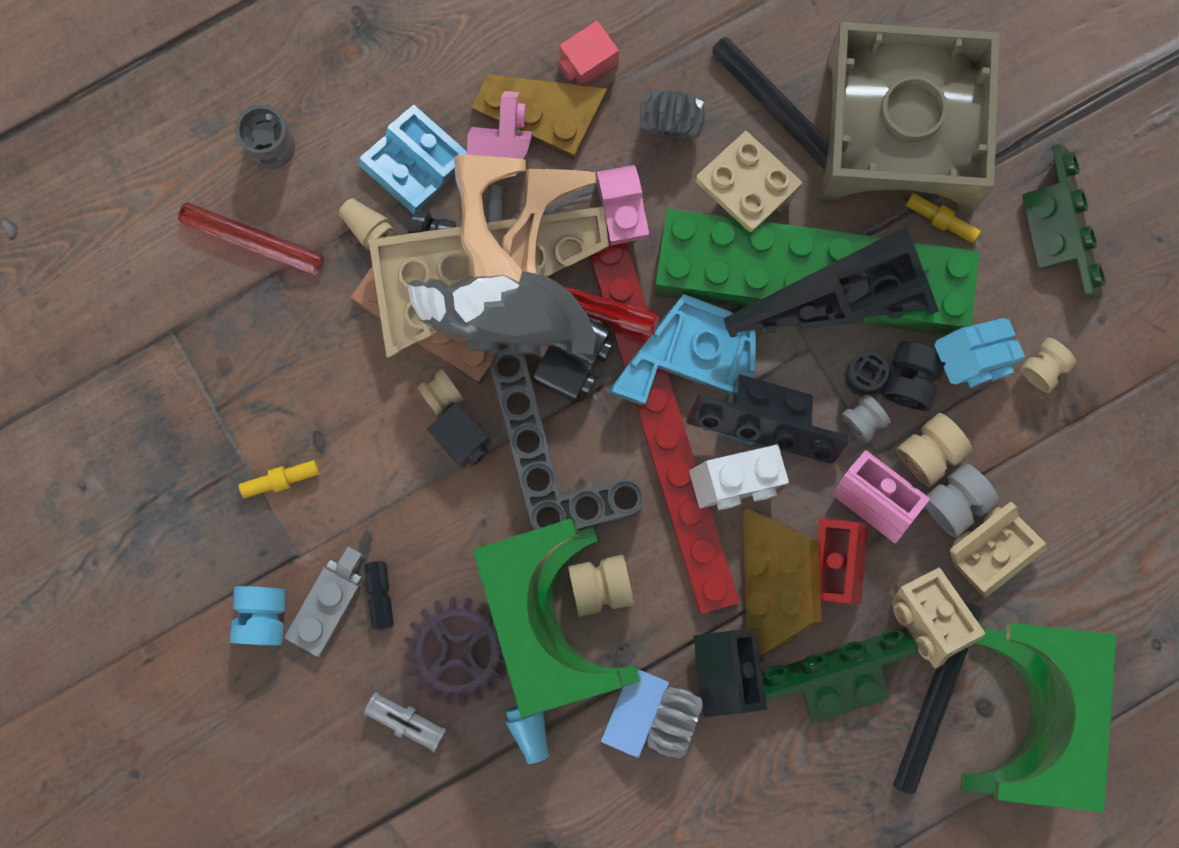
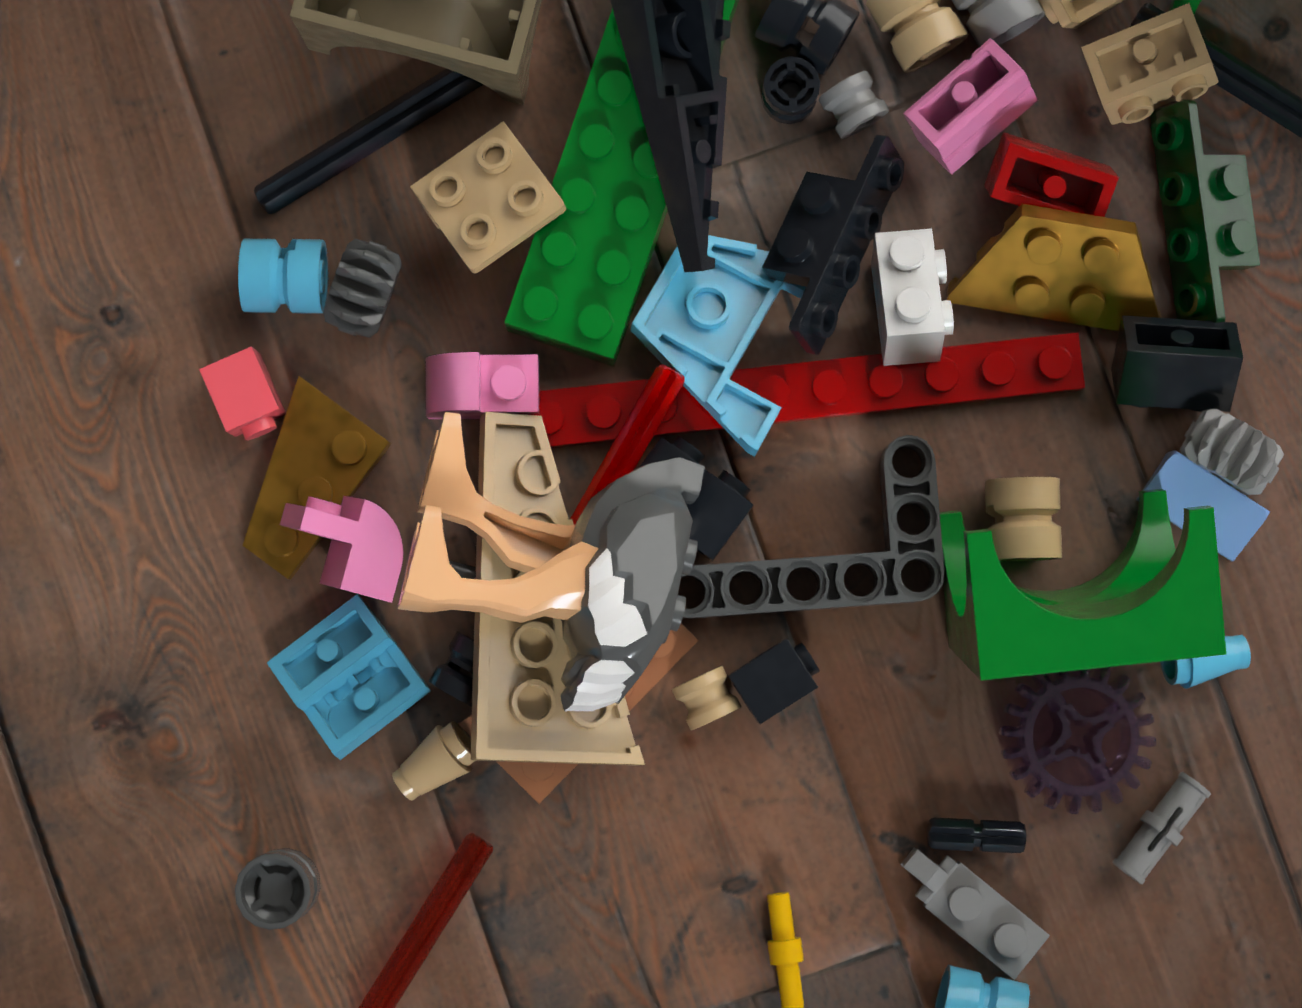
camera: 80 degrees left, 5 degrees up
(670, 58) = (283, 275): none -> medium azure wheel

